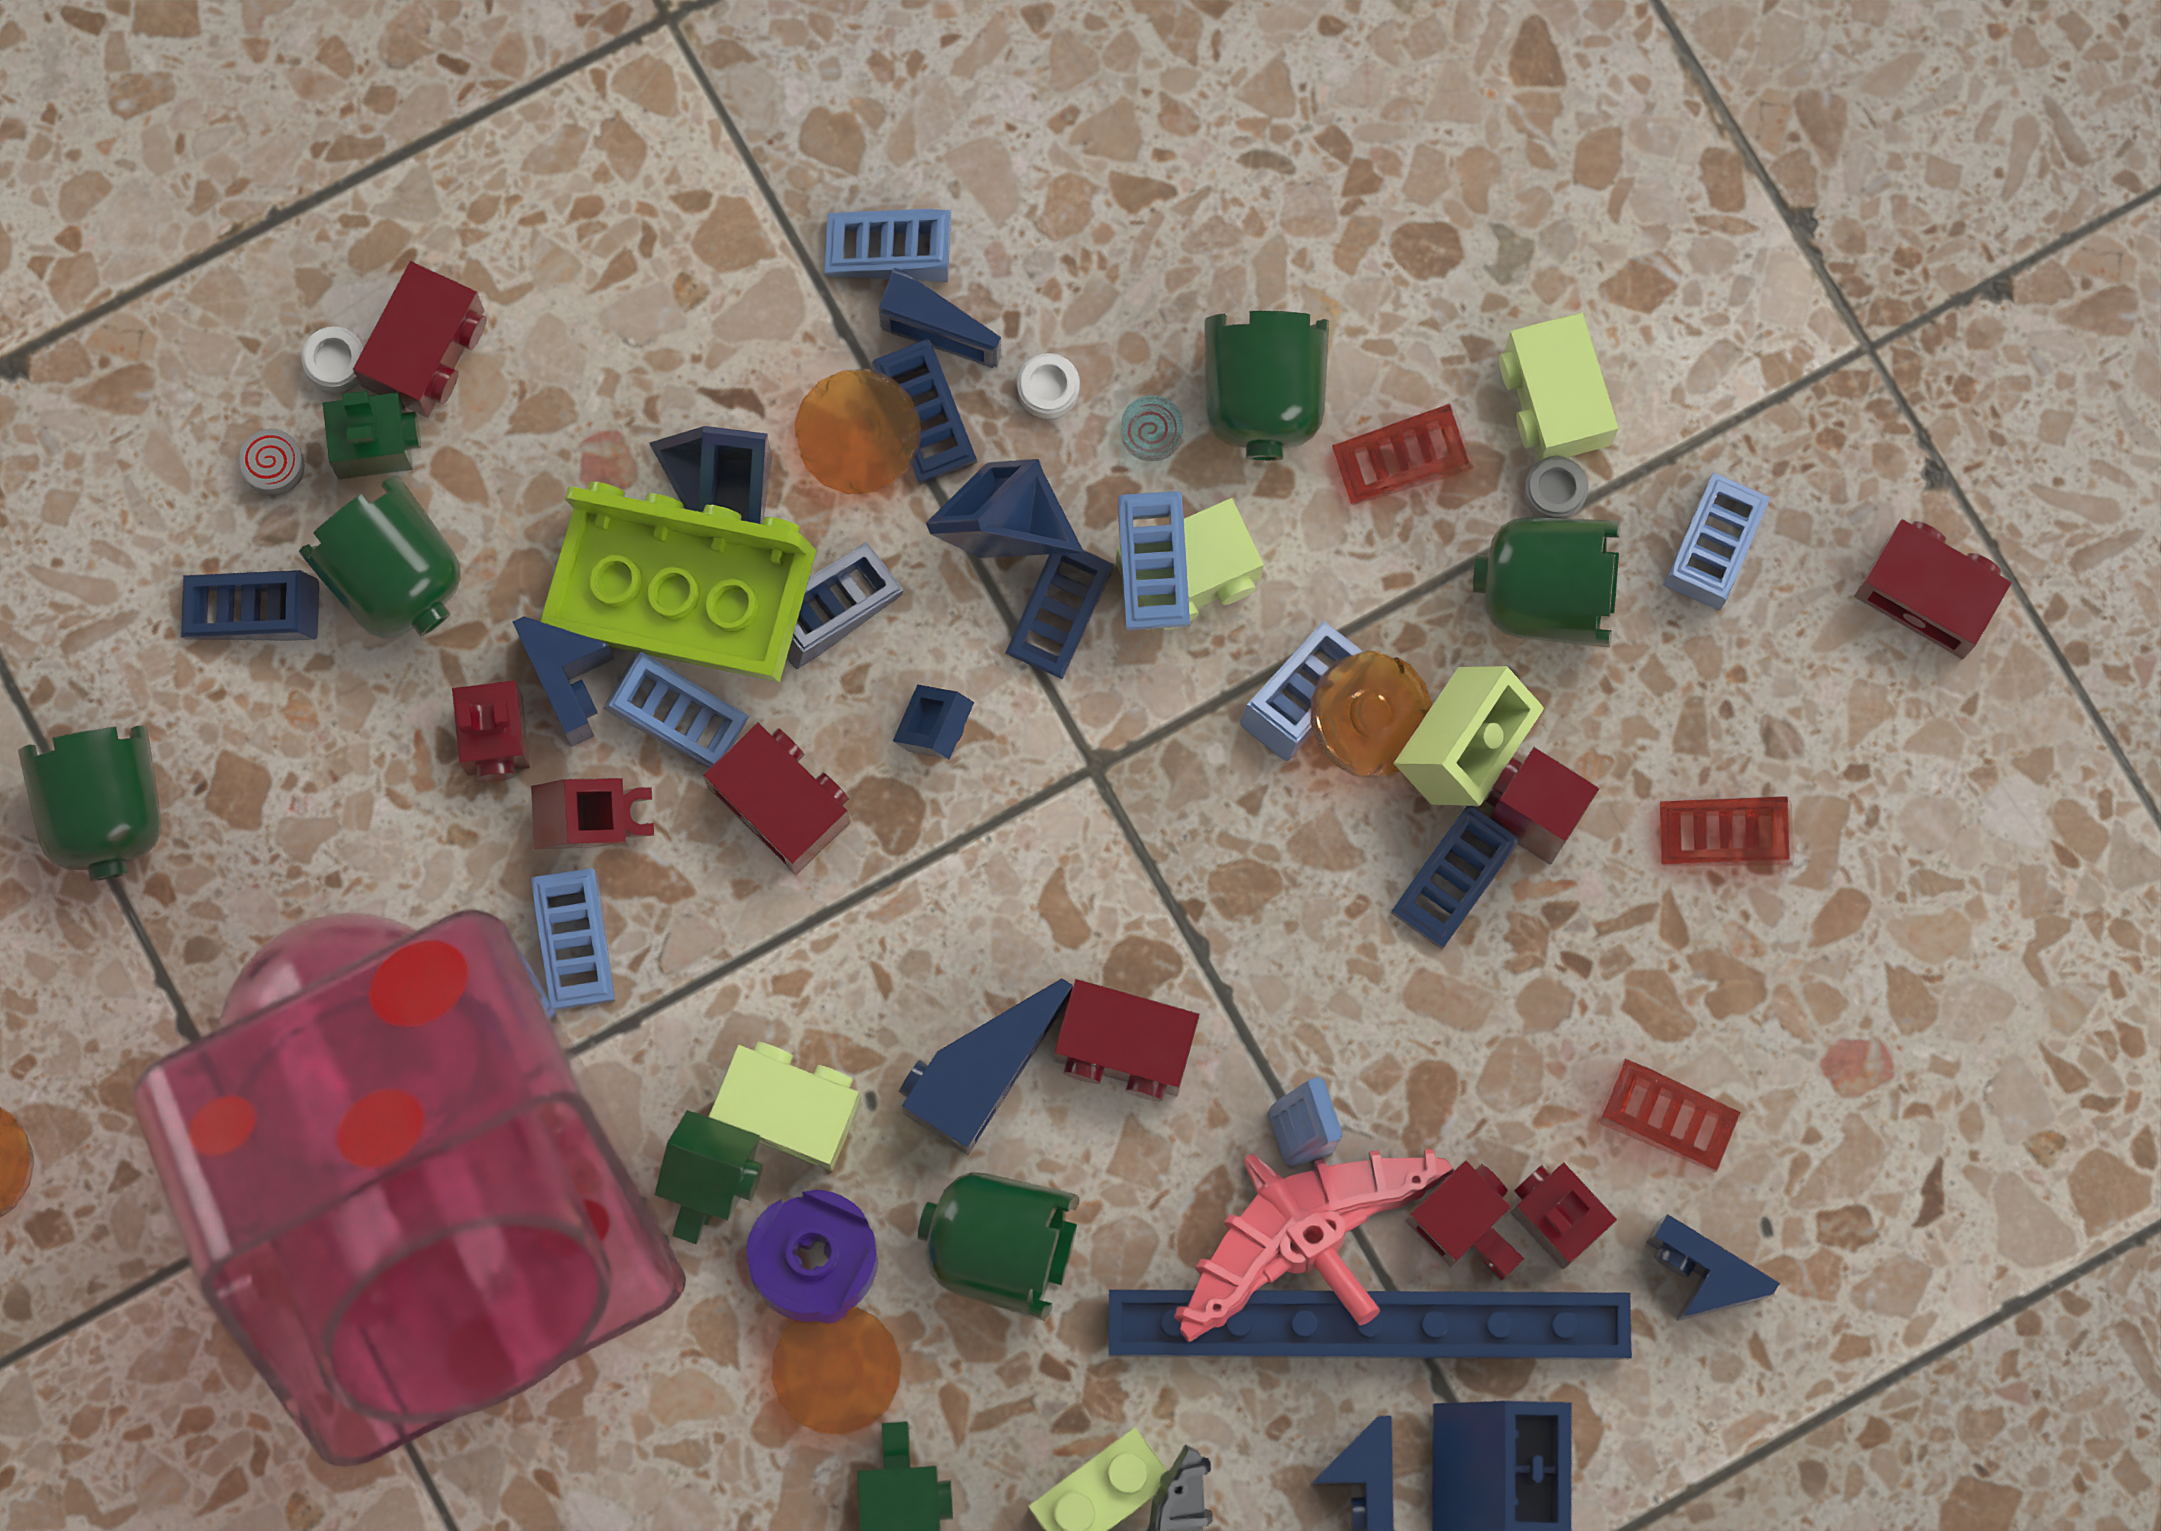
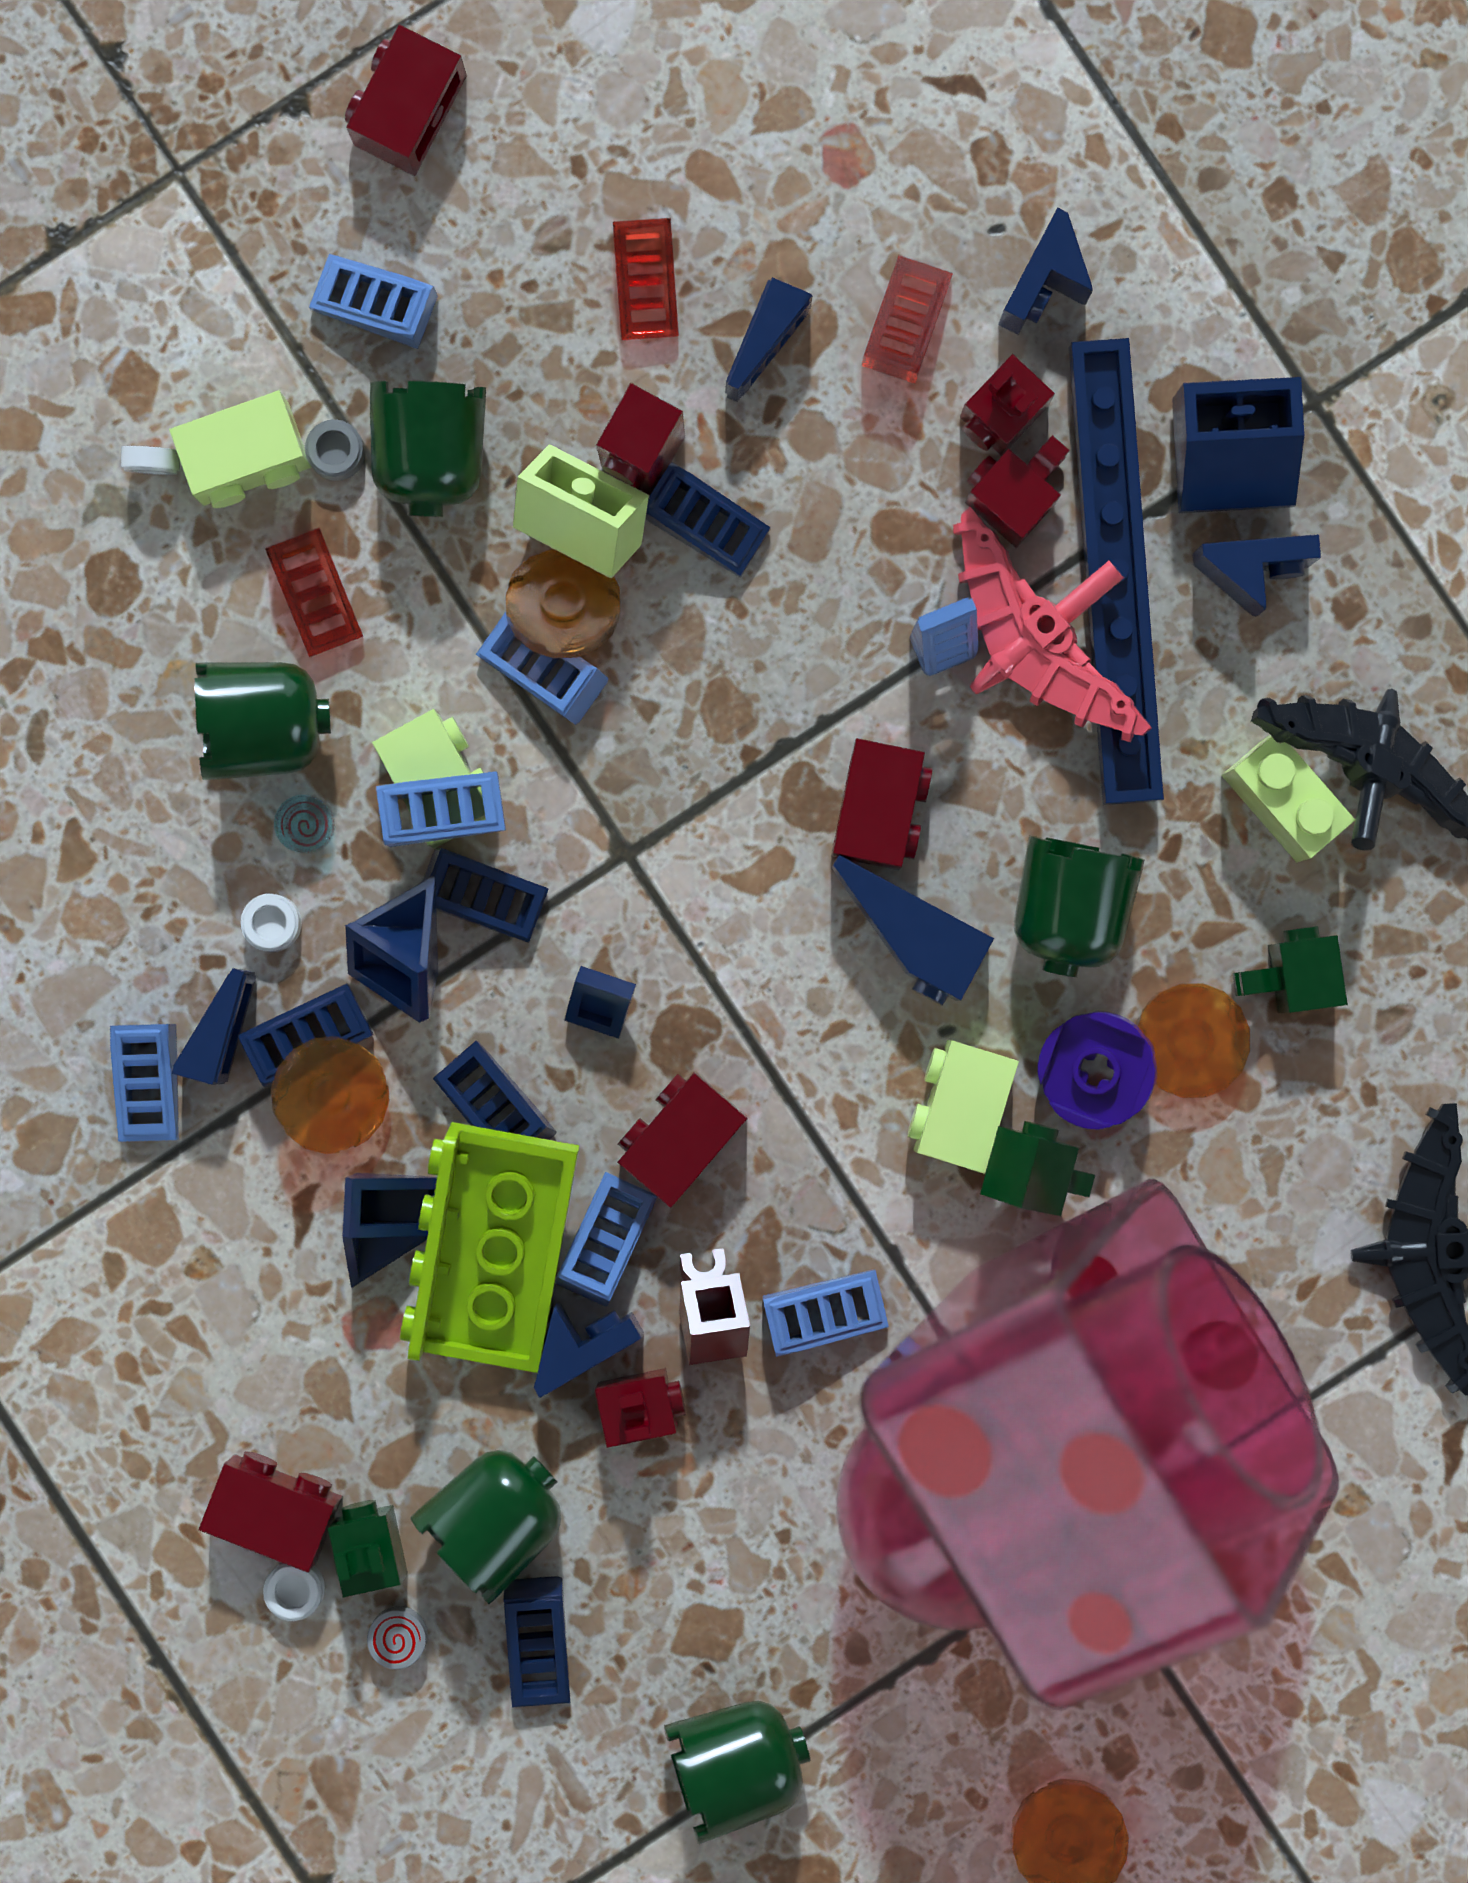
camera: 90 degrees left, 10 degrees up
(1553, 292) = (150, 460): none -> white tile
(1662, 959) = (773, 323): none -> dark blue slope

